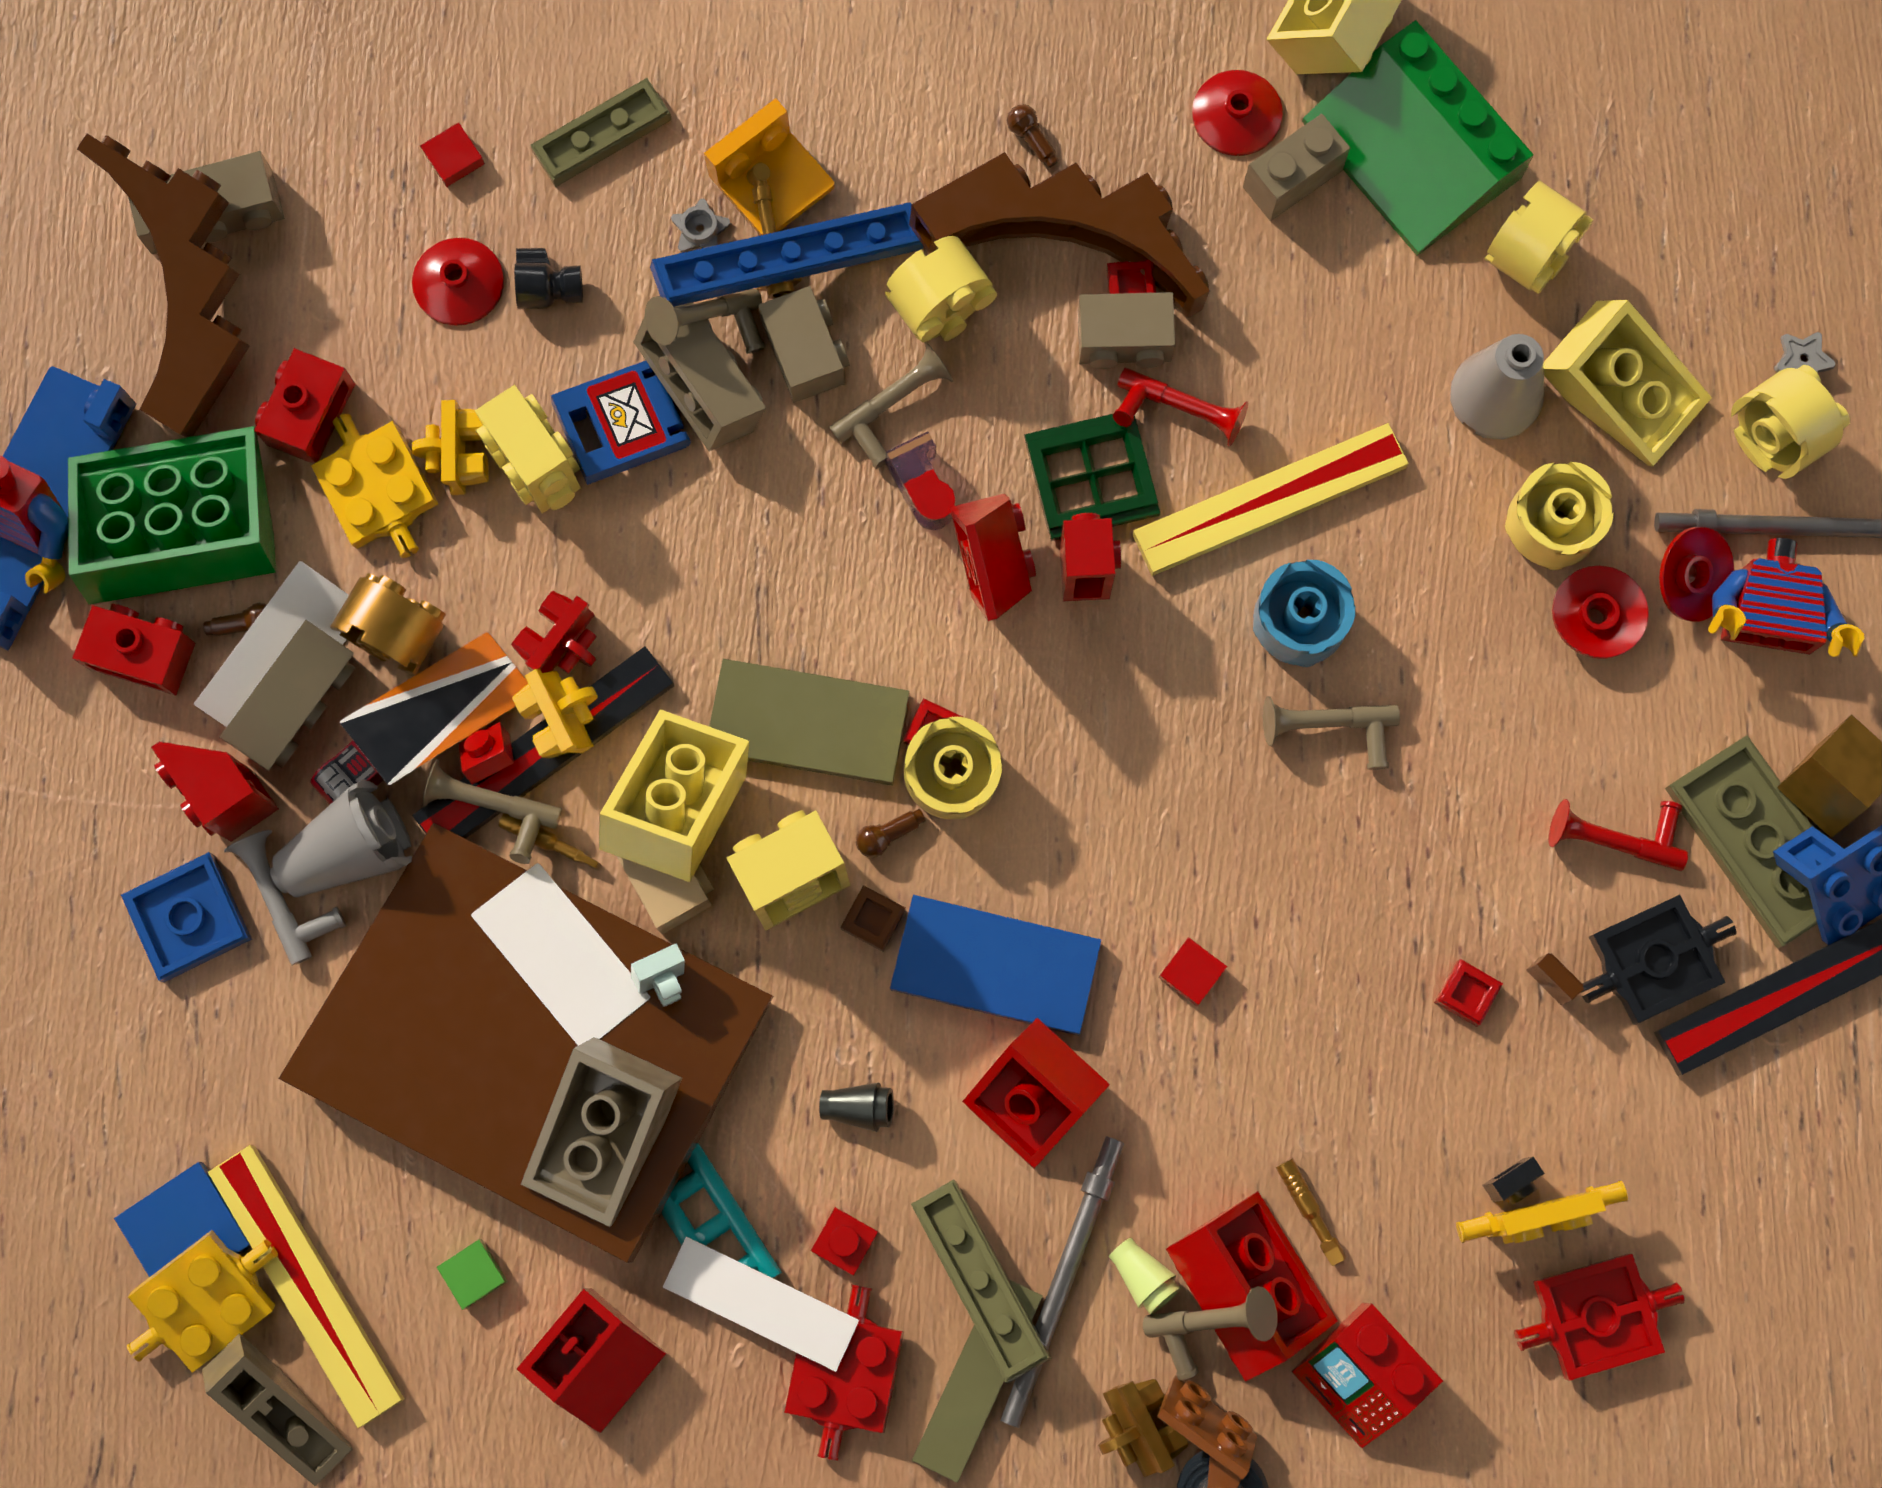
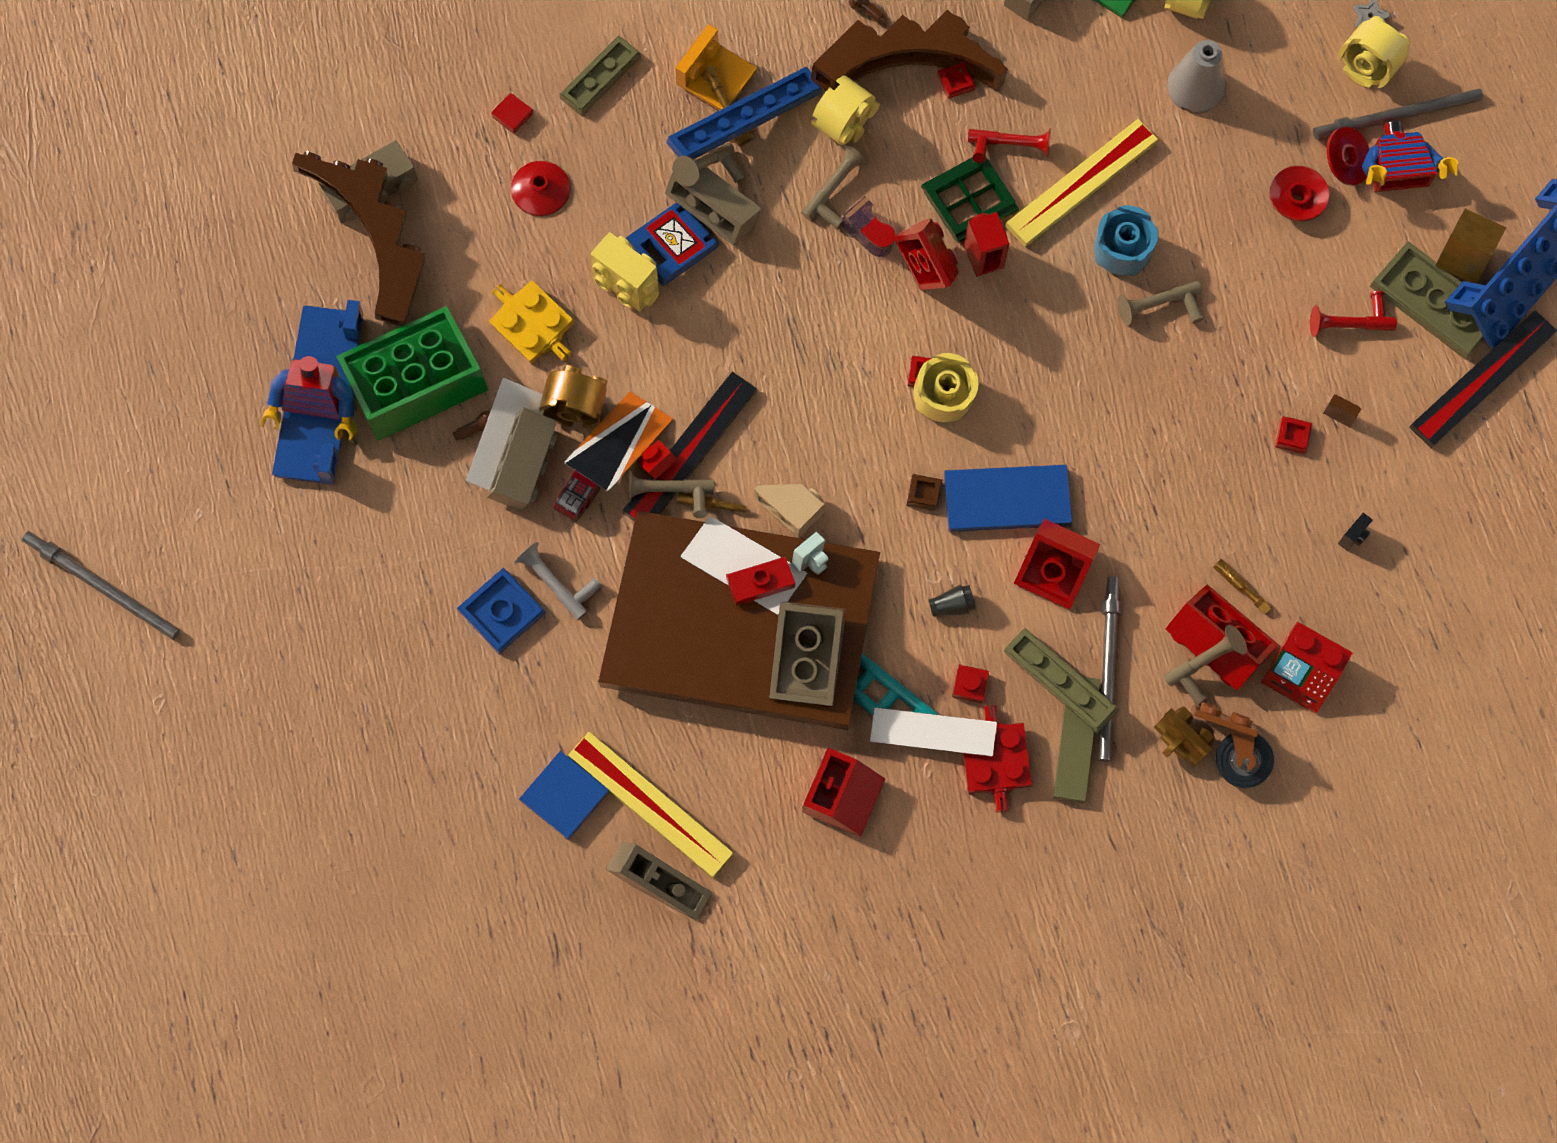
camera: 20 degrees left, 5 degrees down
(134, 649) = (416, 459): red brick -> none
(202, 1300) = (591, 829): yellow plate -> none
(217, 789) = (499, 522): red slope -> none
(303, 406) = (472, 286): red brick -> none
(343, 844) = (586, 538): light grey cone -> none
(456, 466) = (574, 272): yellow hips -> none
(472, 1274) = (750, 768): bright green tile -> none
(540, 285) = (594, 175): black piece -> none
(563, 708) = (683, 414): yellow hips -> none
(569, 621) = (671, 391): red hips -> none
(572, 992) = (760, 581): none -> red plate
(673, 795) = (784, 448): light yellow brick -> none
(691, 218) = (677, 109): light grey plate -> none
(789, 868) = (870, 469): light yellow brick -> none
(802, 343) = (769, 166): dark tan brick -> none
(812, 720) = (846, 388): olive tile -> none
(875, 839) = (910, 445): reddish brown piece -> none
(1126, 329) = (962, 105): dark tan brick -> none
(1144, 1276) = (1157, 650): yellowish green cone -> none
(1192, 971) = (1126, 468): red tile -> none
(1544, 536) = (1257, 143): light yellow brick -> none
(1560, 1213) = (1386, 540): yellow plate -> none
(1599, 1316) = (1430, 595): red plate -> none
(1626, 379) = (1270, 55): light yellow slope -> none
(1657, 959) = (1397, 383): black plate -> none

